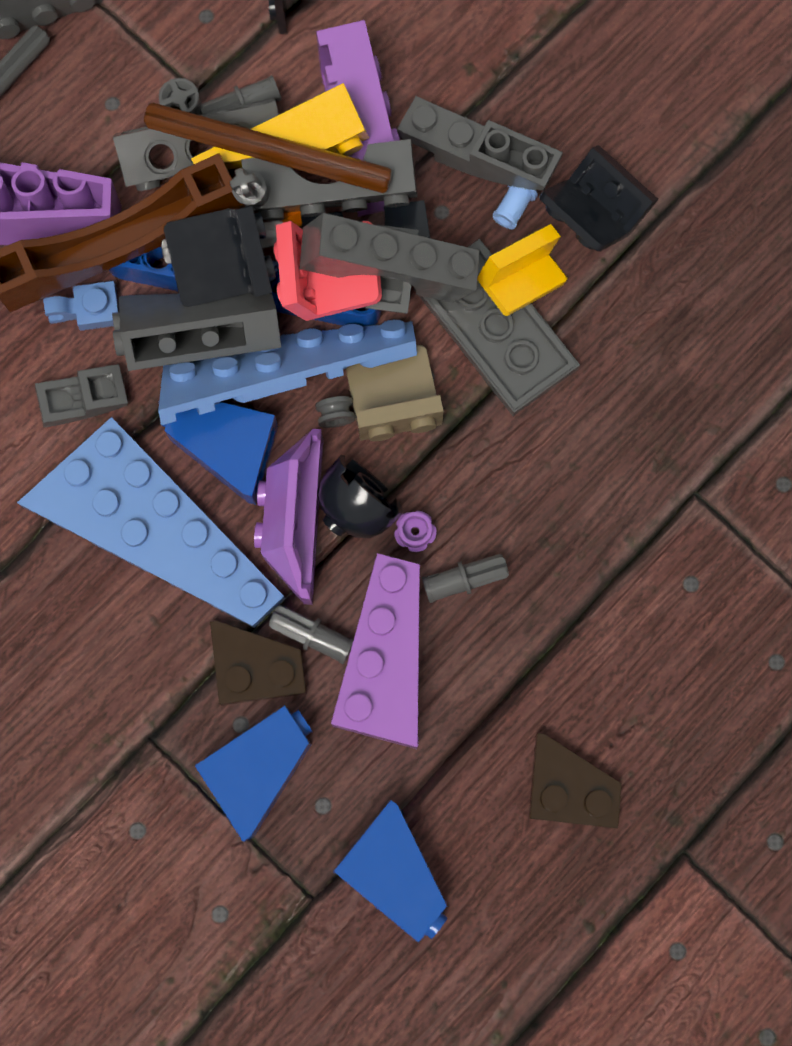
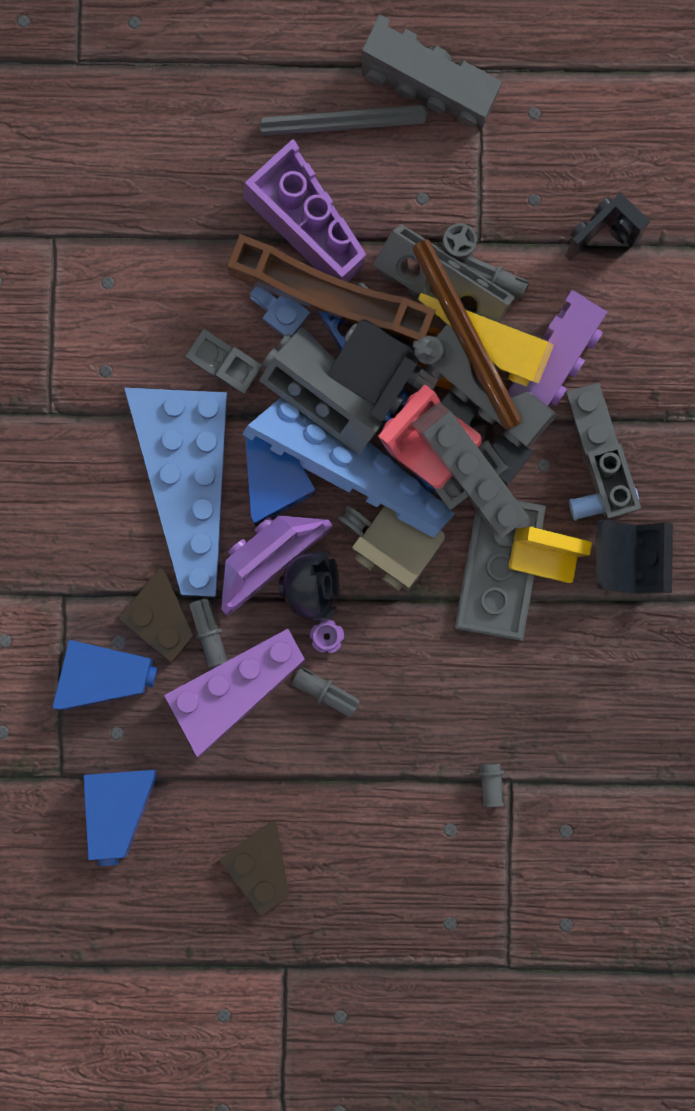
camera: 45 degrees right, 5 degrees up
(685, 508) = (492, 784): none -> dark grey pin

